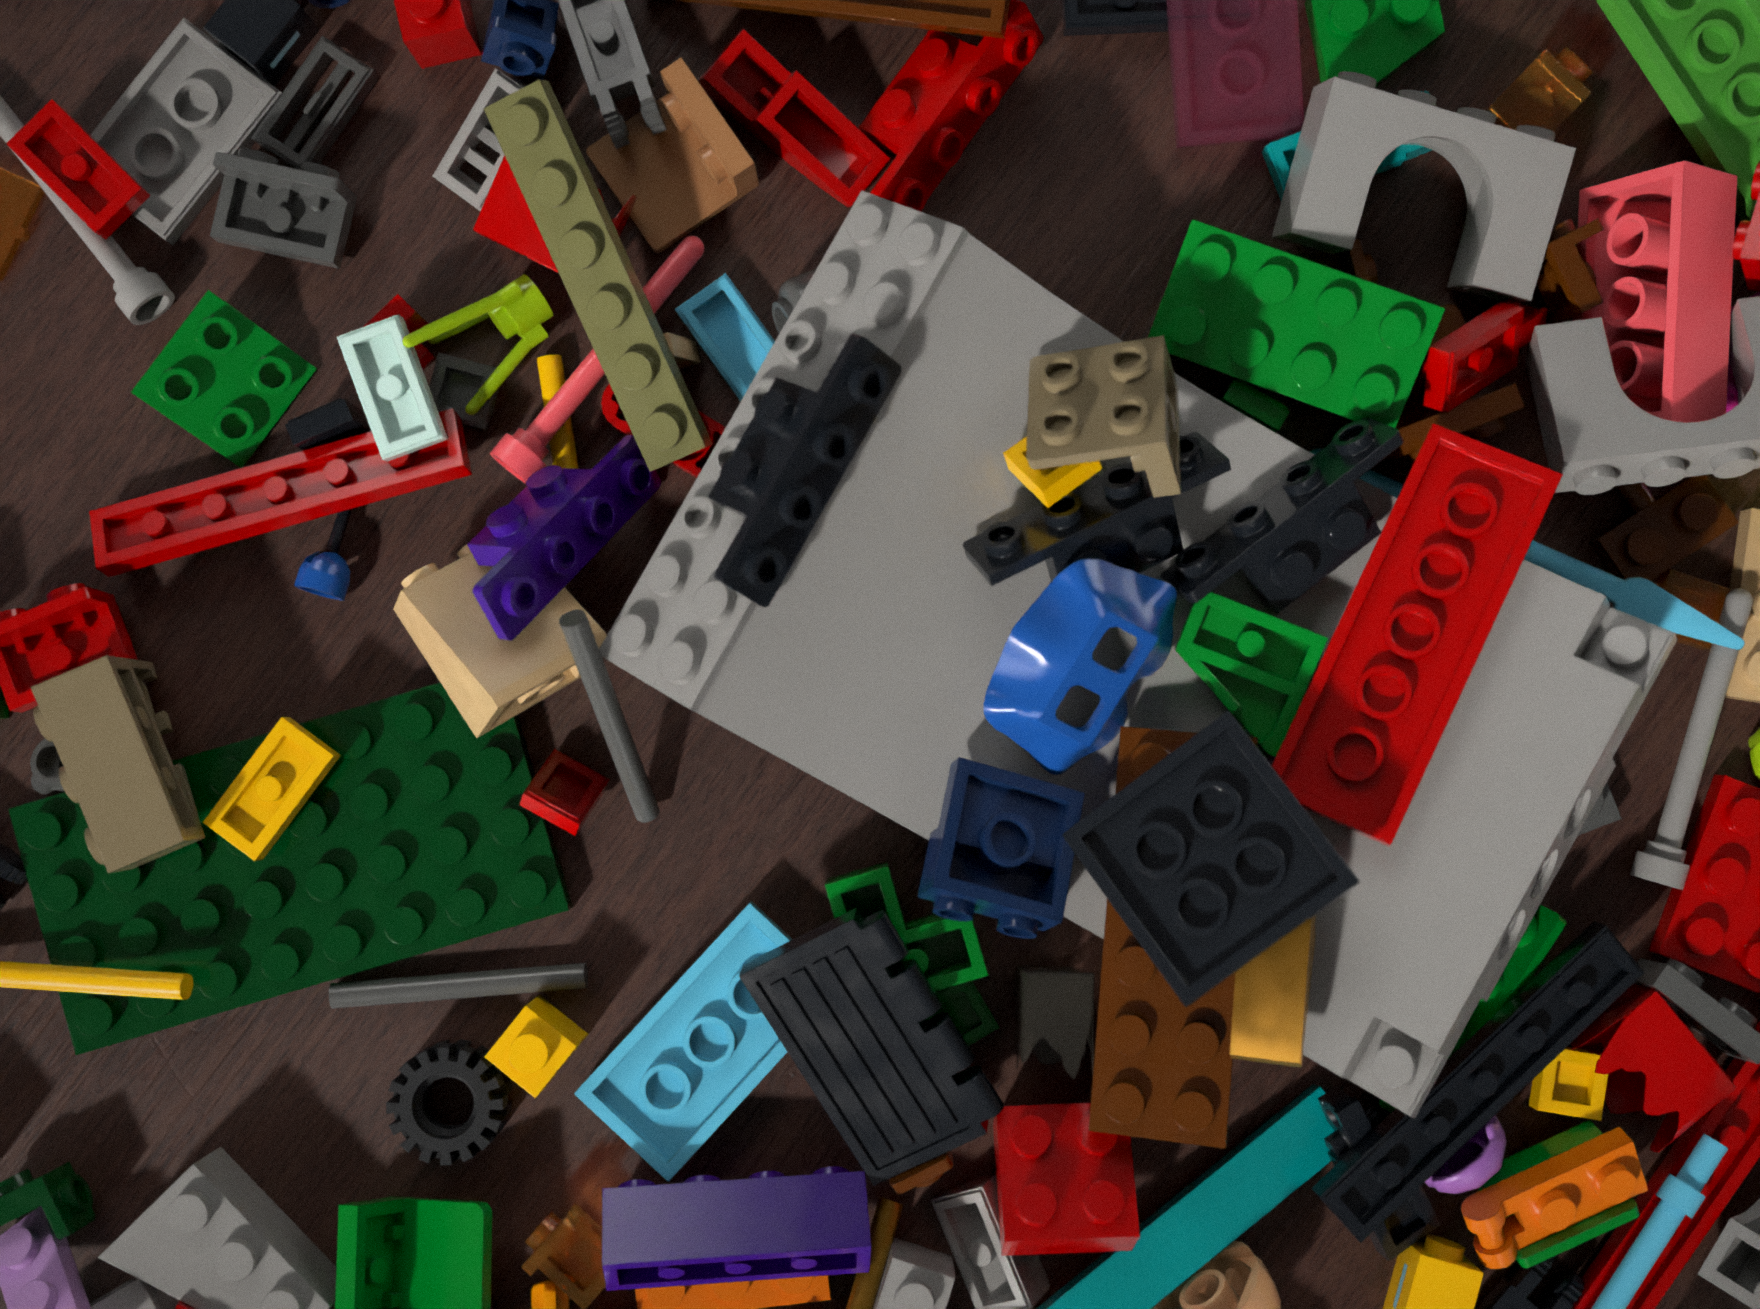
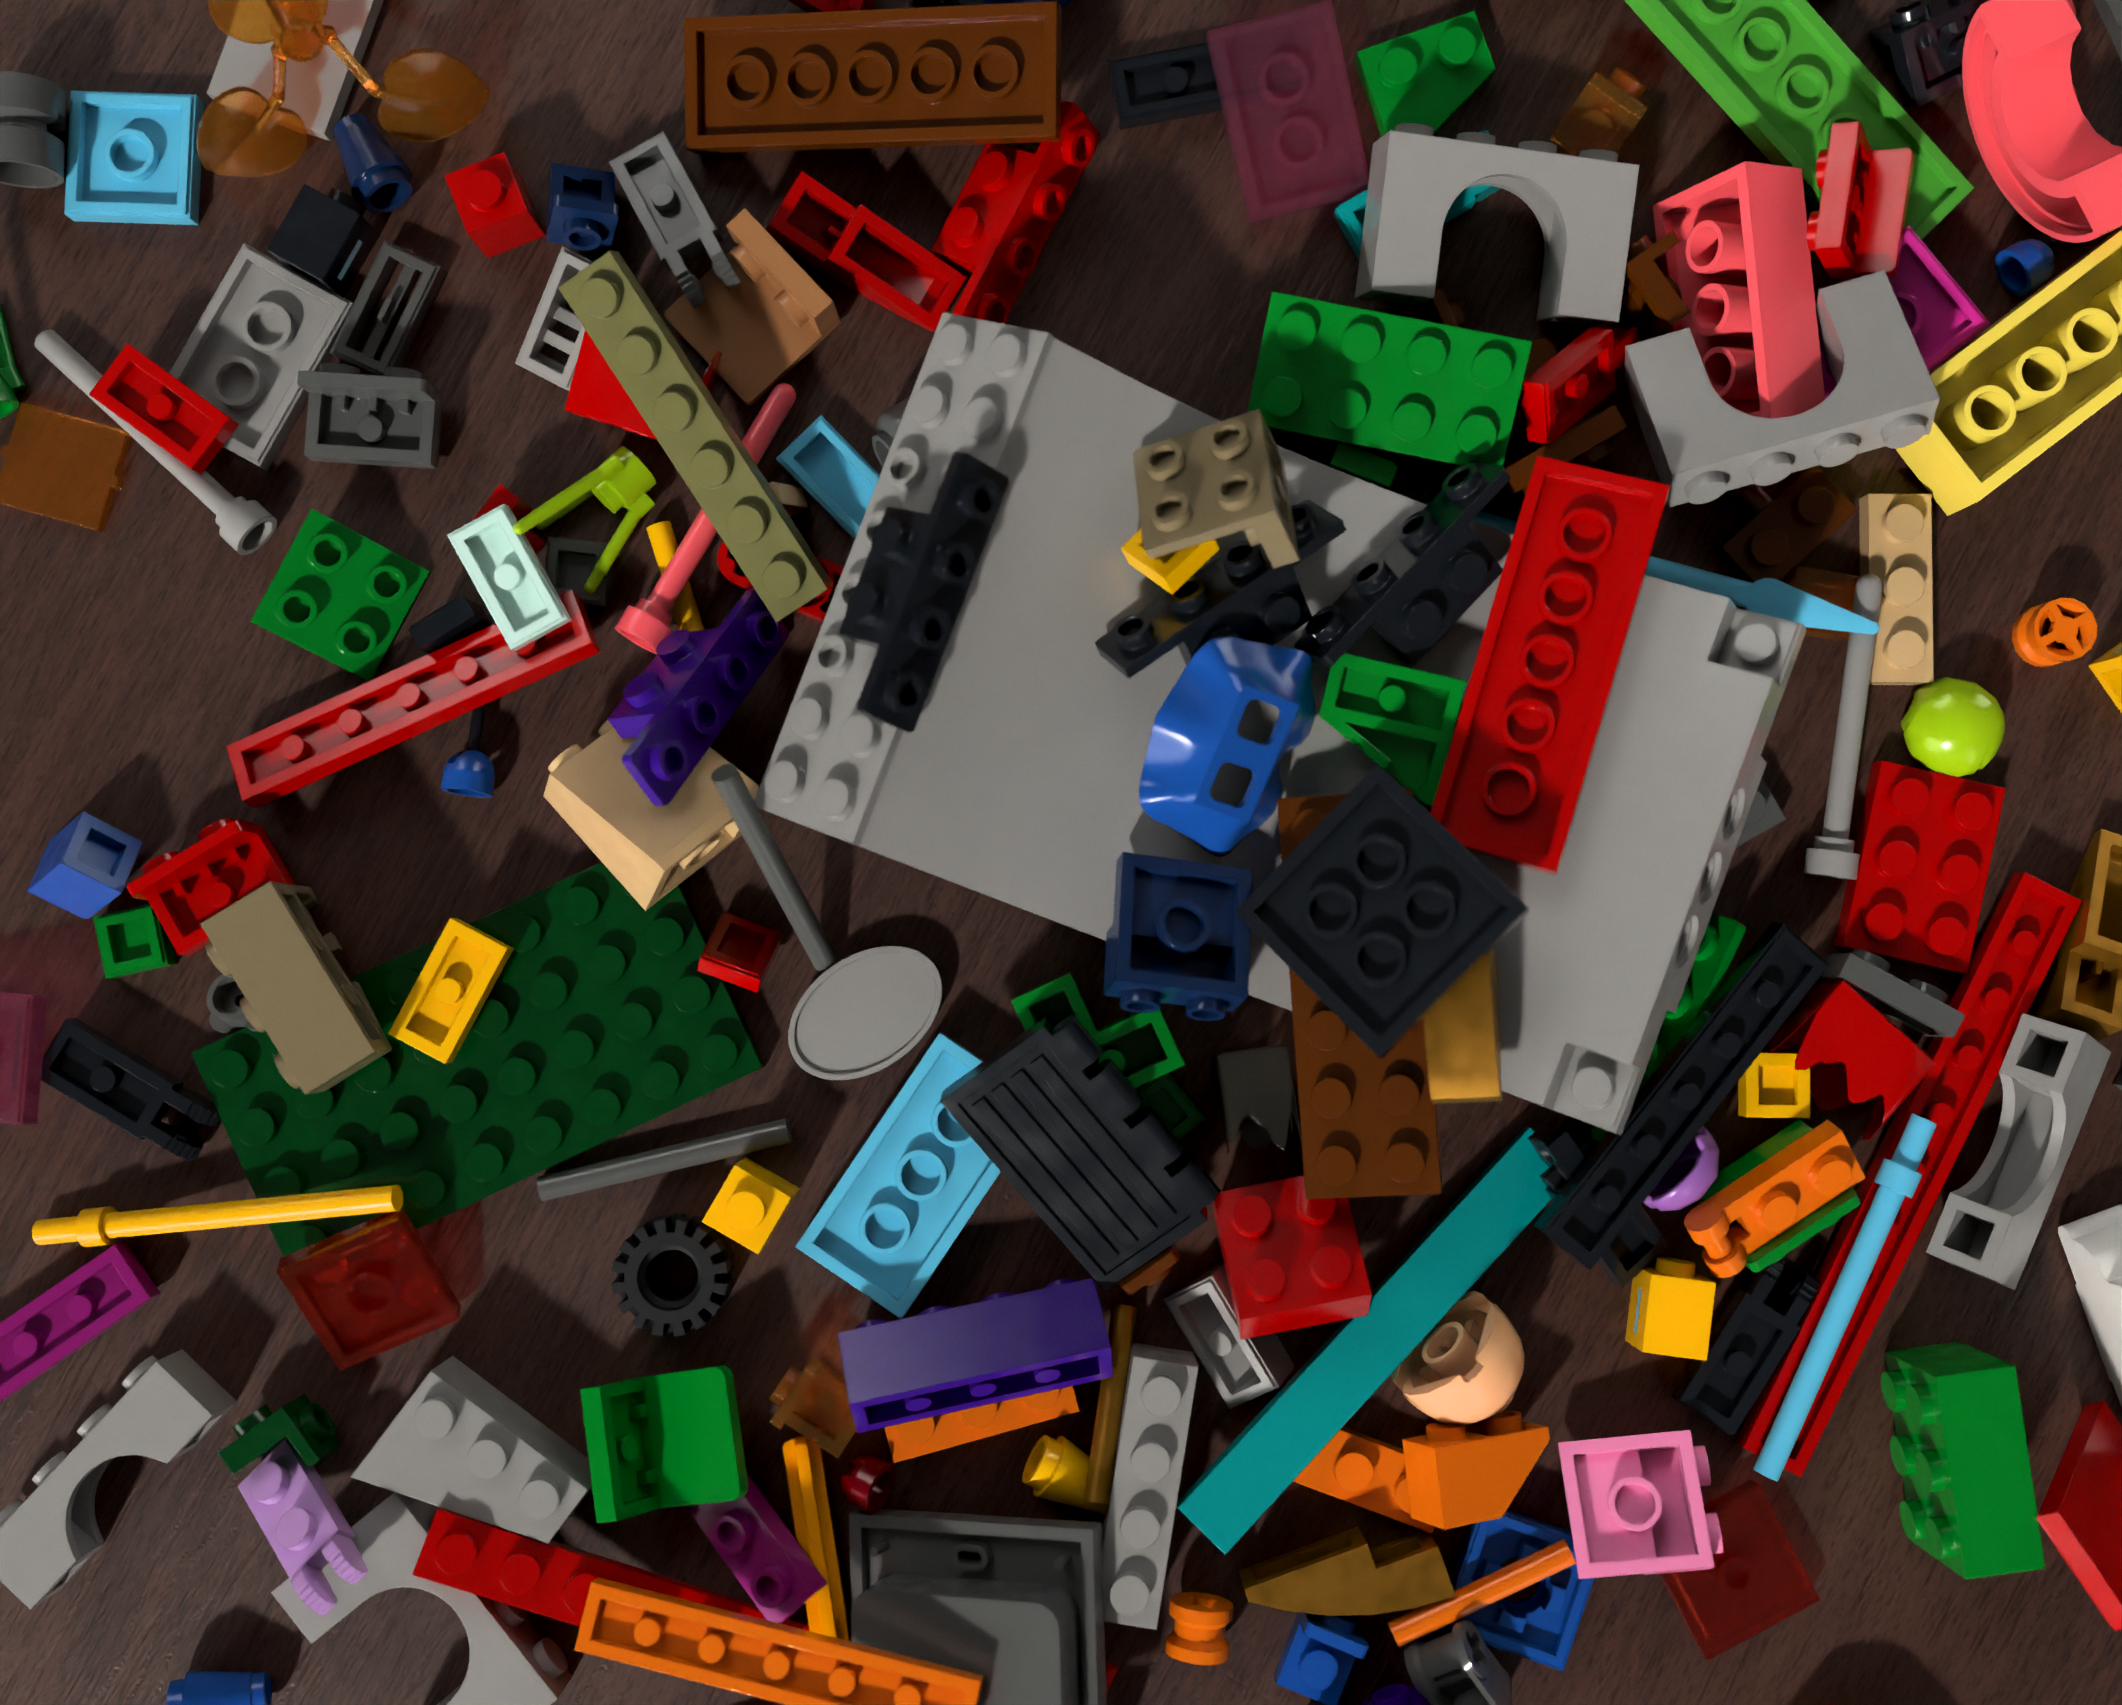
camera: 10 degrees left, 0 degrees up
(146, 1070) = (369, 1288): none -> clear red plate
(679, 871) = (865, 1012): none -> light grey piece

